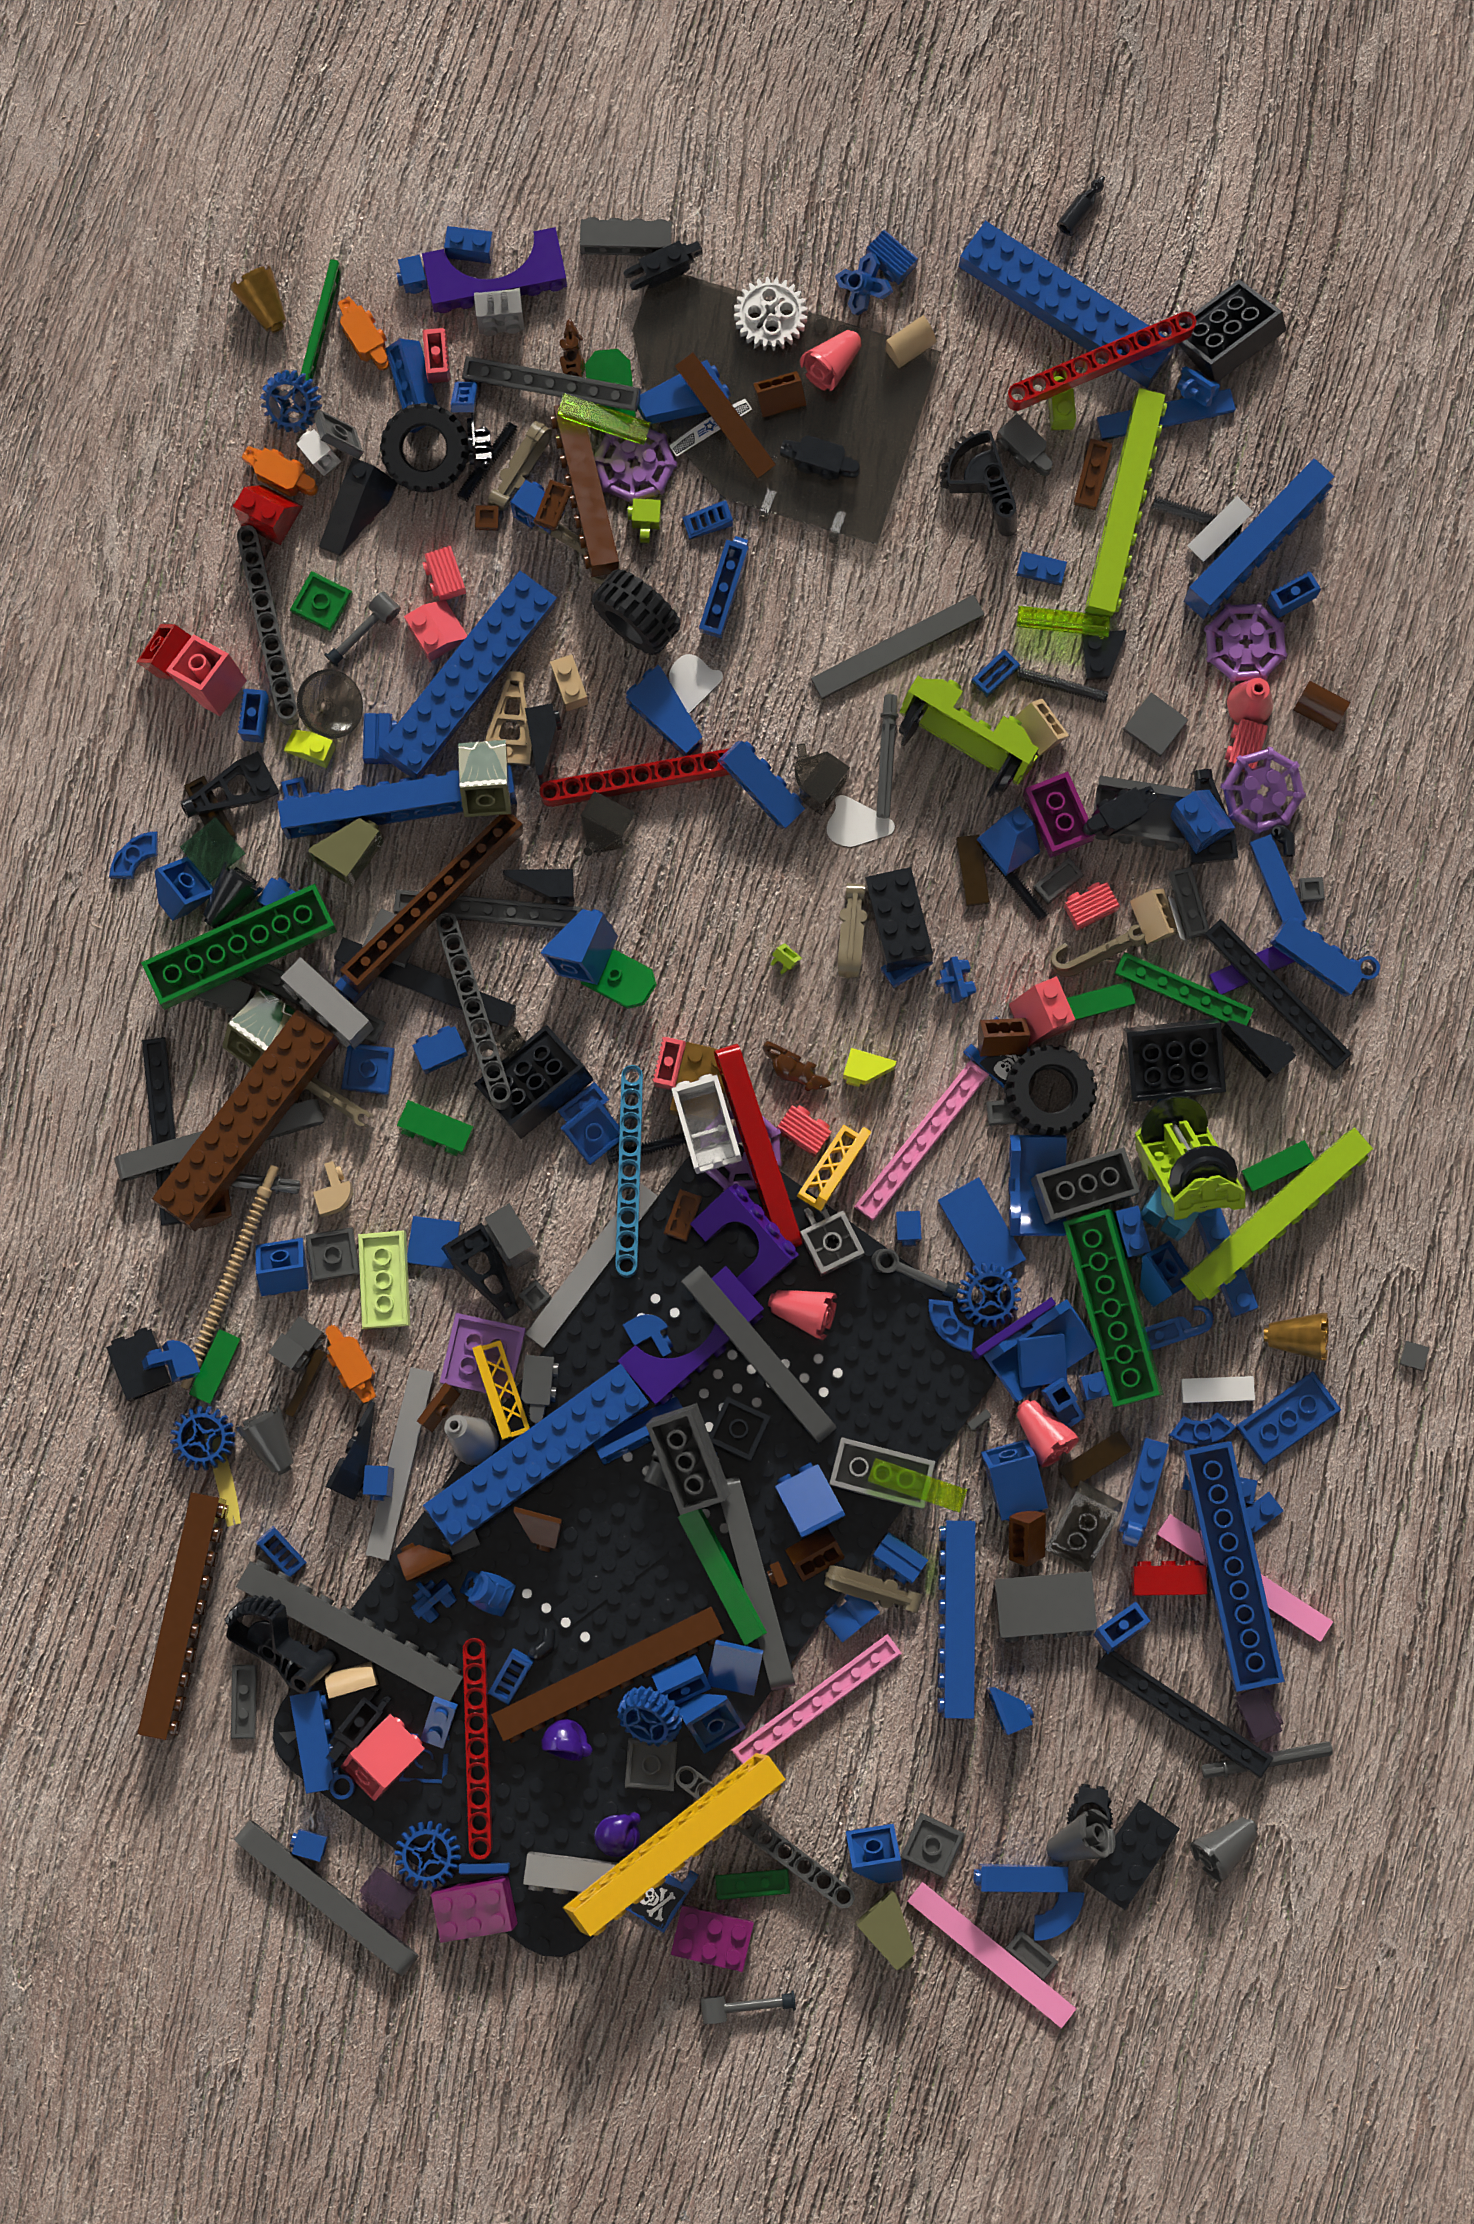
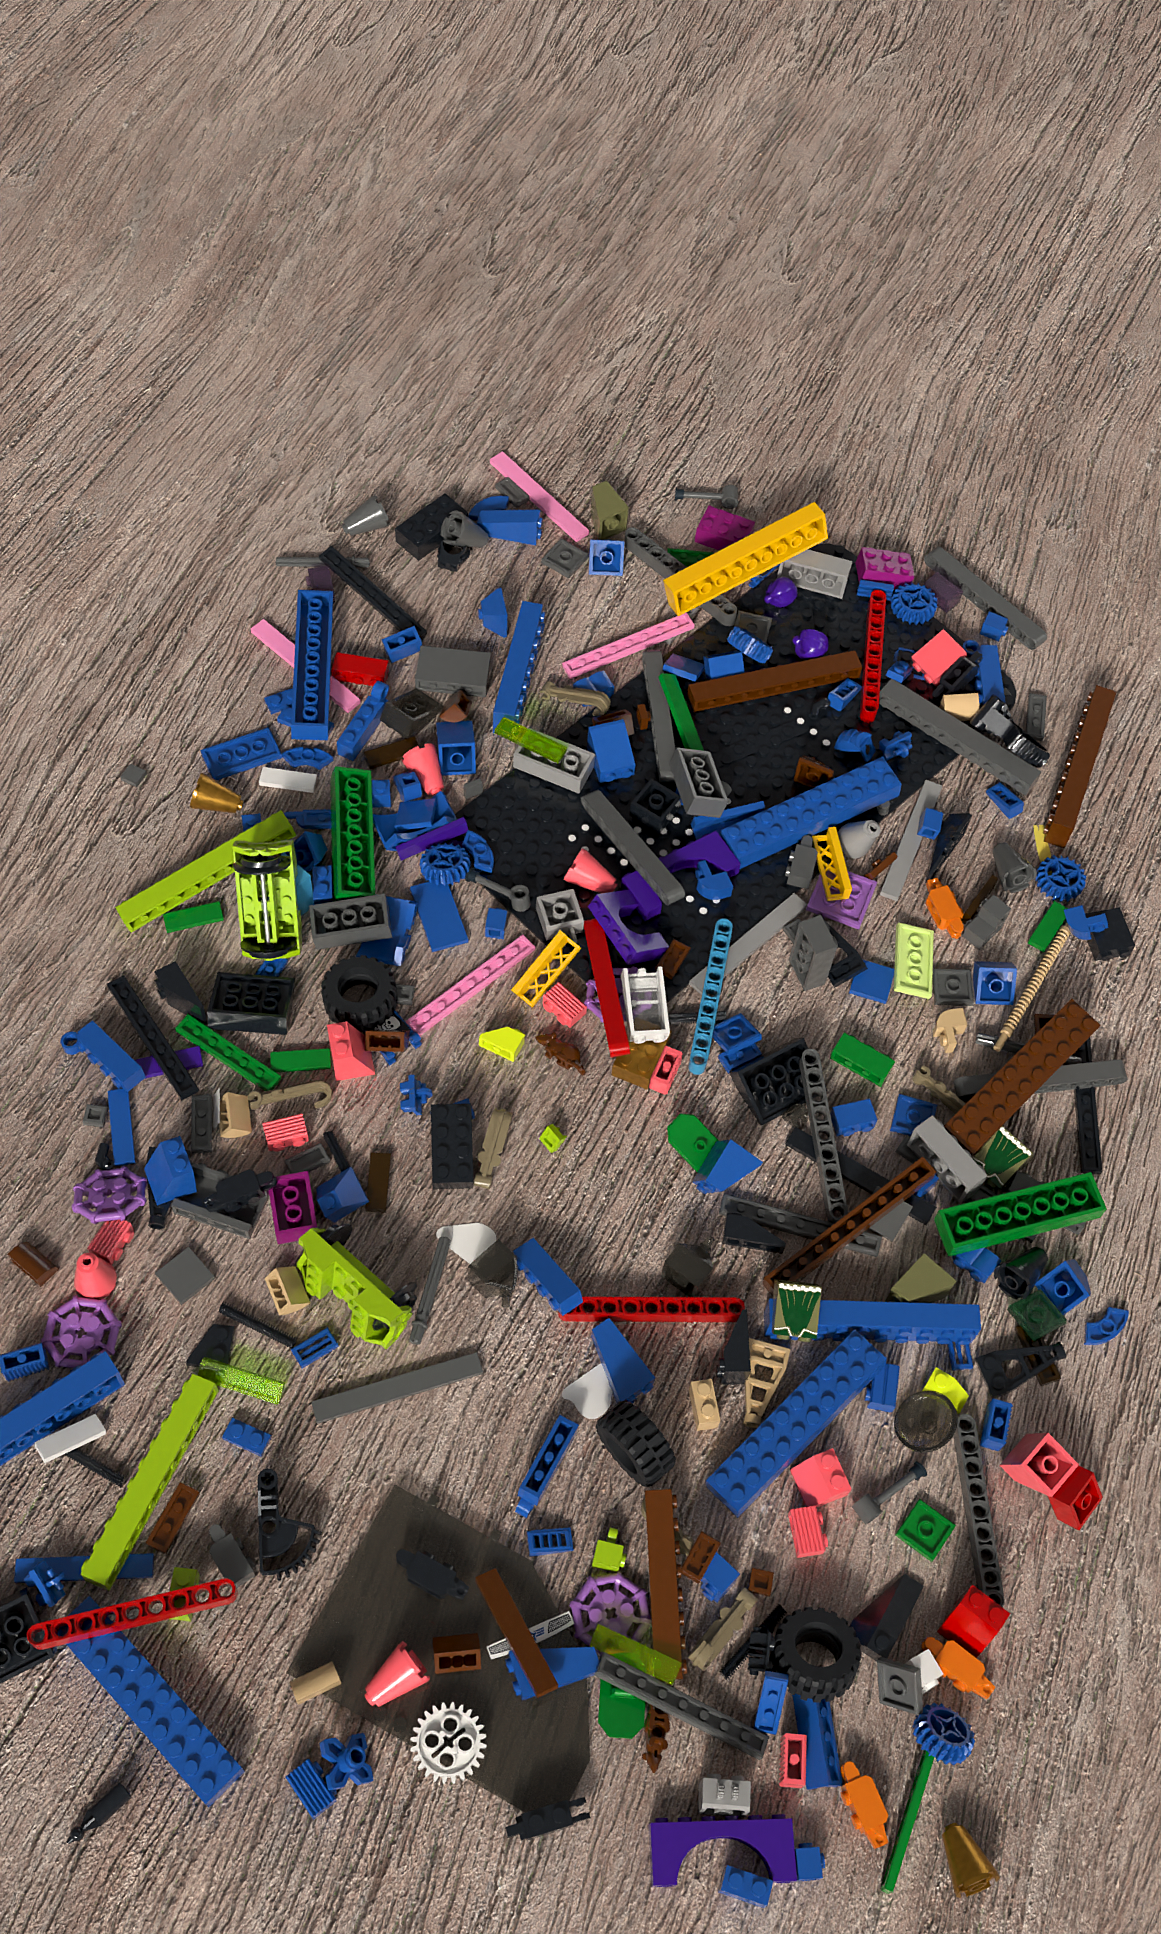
camera: 175 degrees left, 20 degrees down
(420, 1561) = (904, 762): reddish brown slope -> none
(624, 236) = (580, 1865): dark grey brick -> none
(710, 1719) = (709, 642): blue slope -> none
(899, 1558) = (551, 715): blue brick -> none

